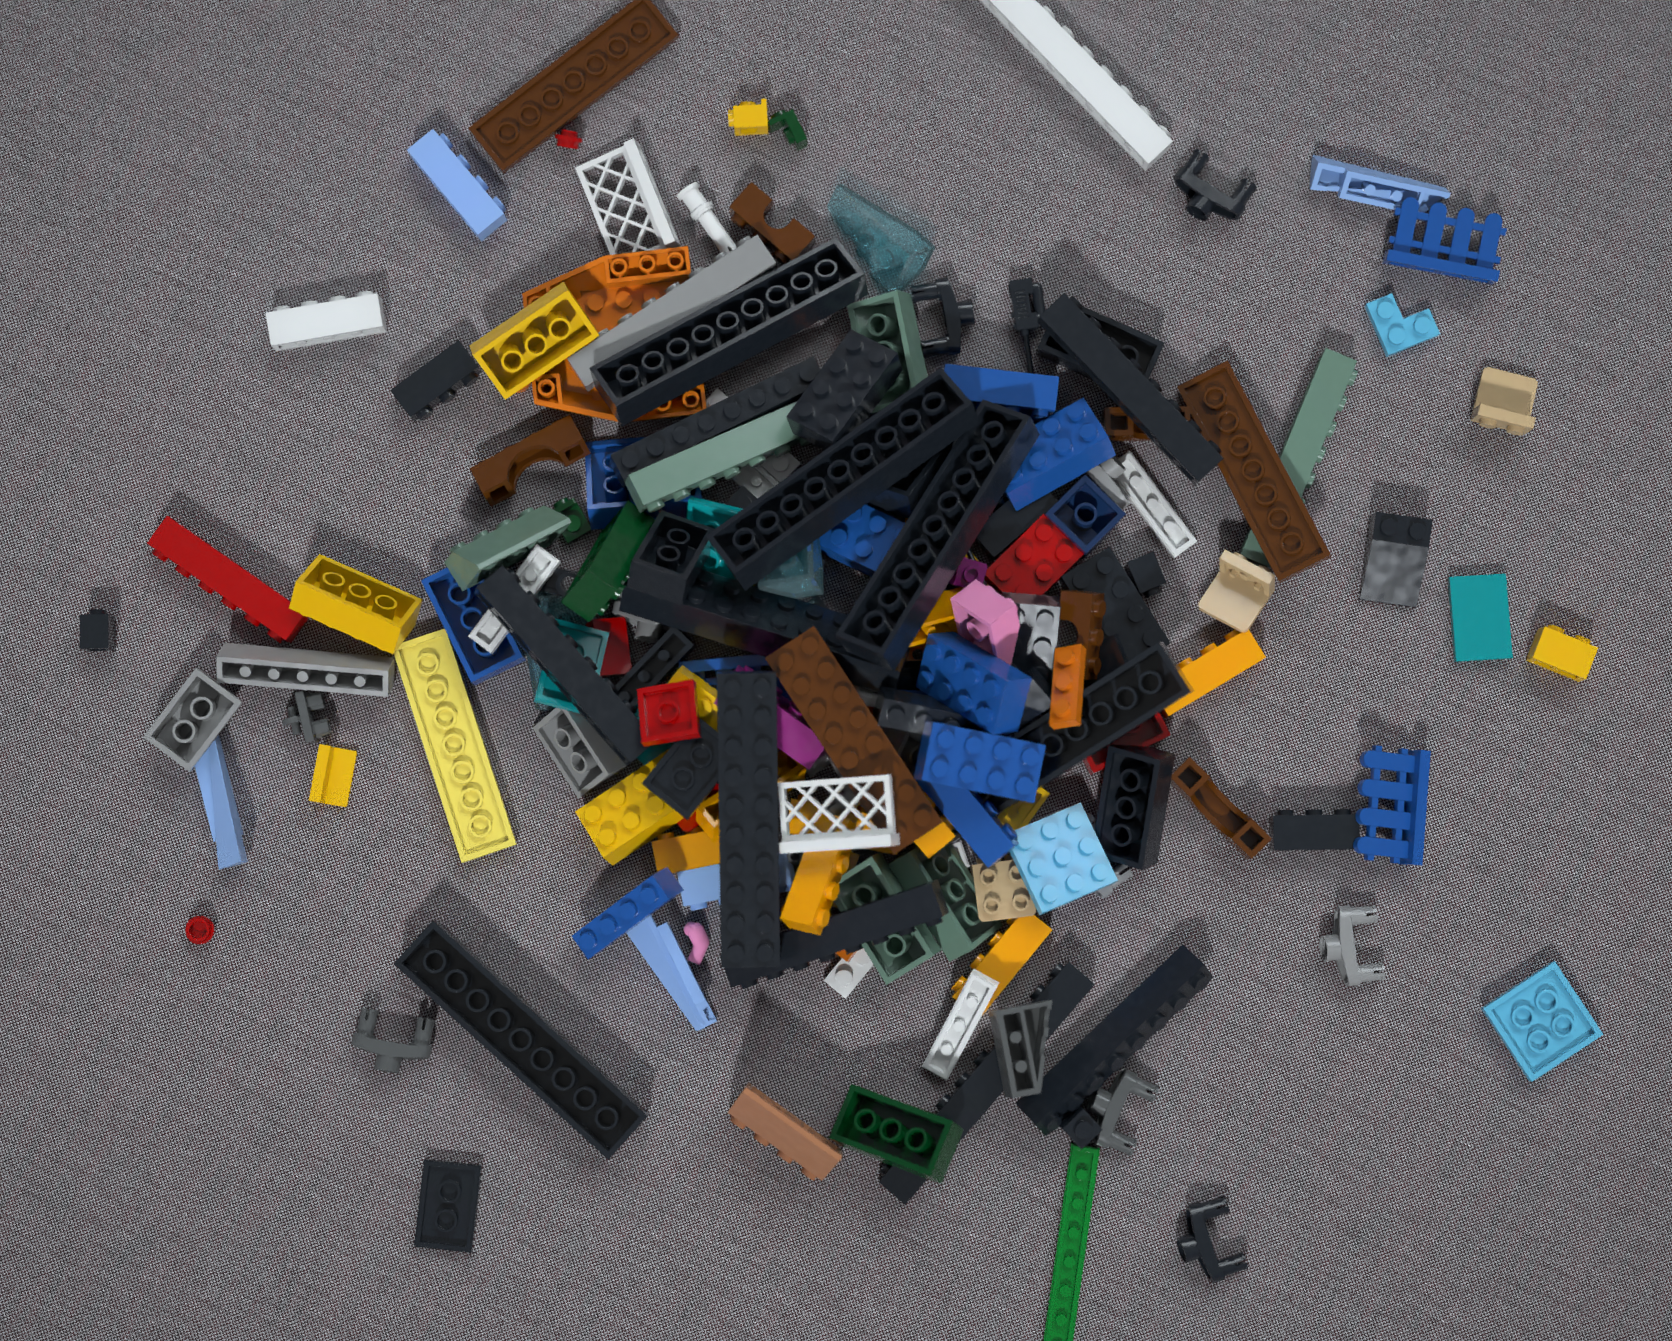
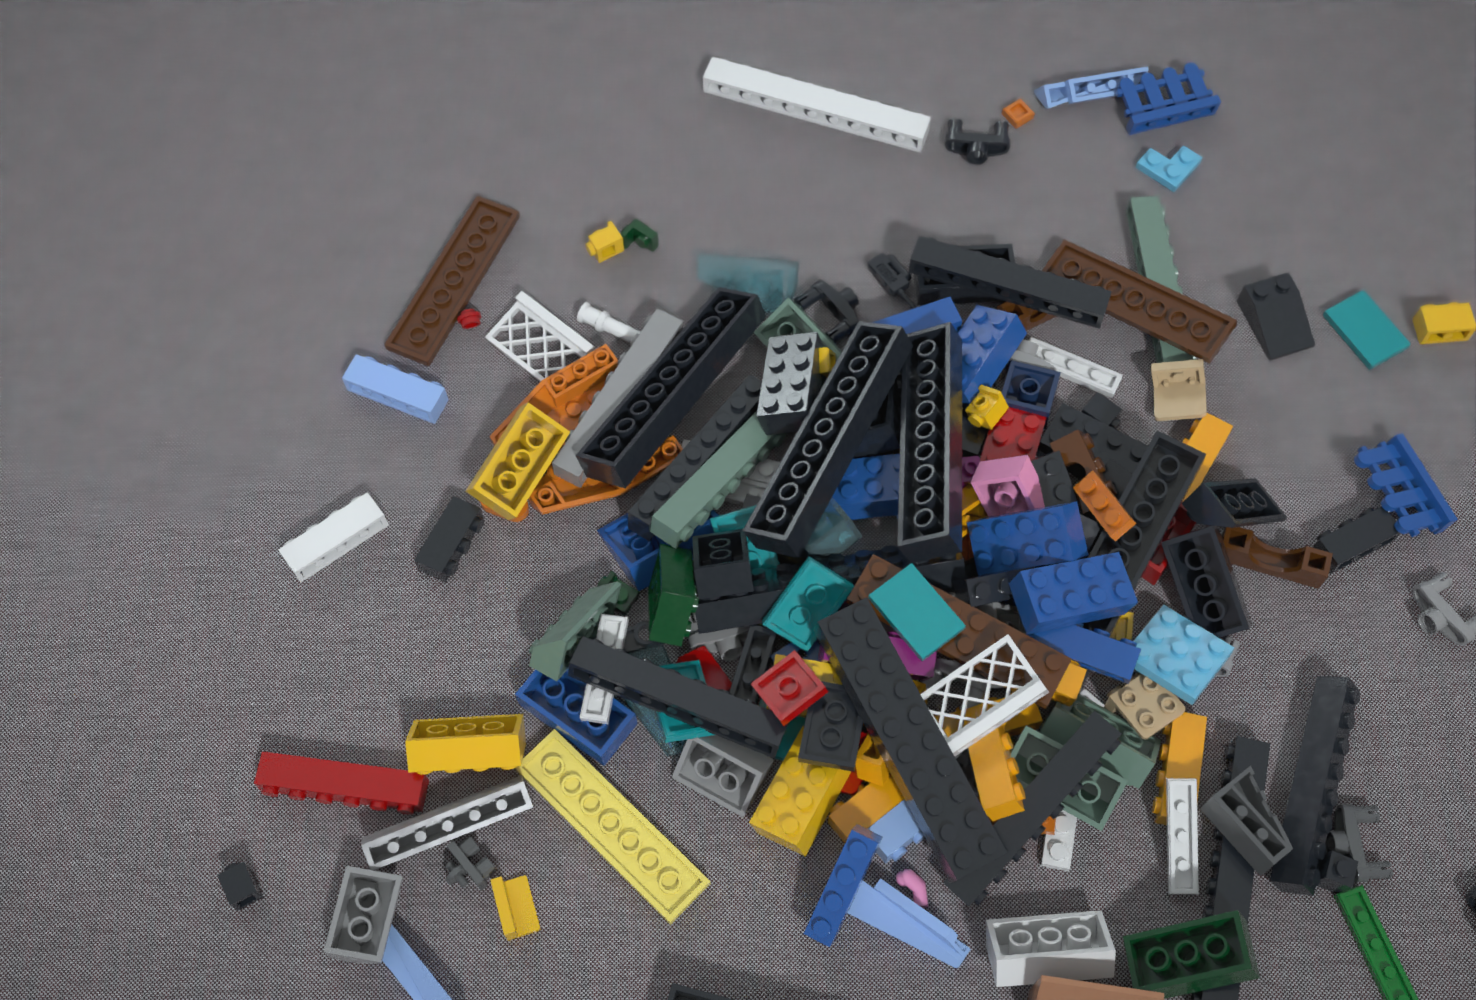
camera: 25 degrees left, 20 degrees down
(500, 473) = (576, 537): reddish brown arch -> none
(732, 638) = (807, 599): none -> teal tile
(750, 212) = (641, 303): reddish brown arch -> none
(780, 1060) = (1050, 945): none -> white brick
(819, 706) = (916, 612): none -> teal tile
(894, 386) = (827, 360): none -> yellow tile
(1025, 517) = (986, 407): none -> yellow brick
(1204, 747) = (1232, 504): none -> black slope
(1277, 176) = (1018, 113): none -> orange tile
(1505, 401) = (1280, 179): tan bracket -> none

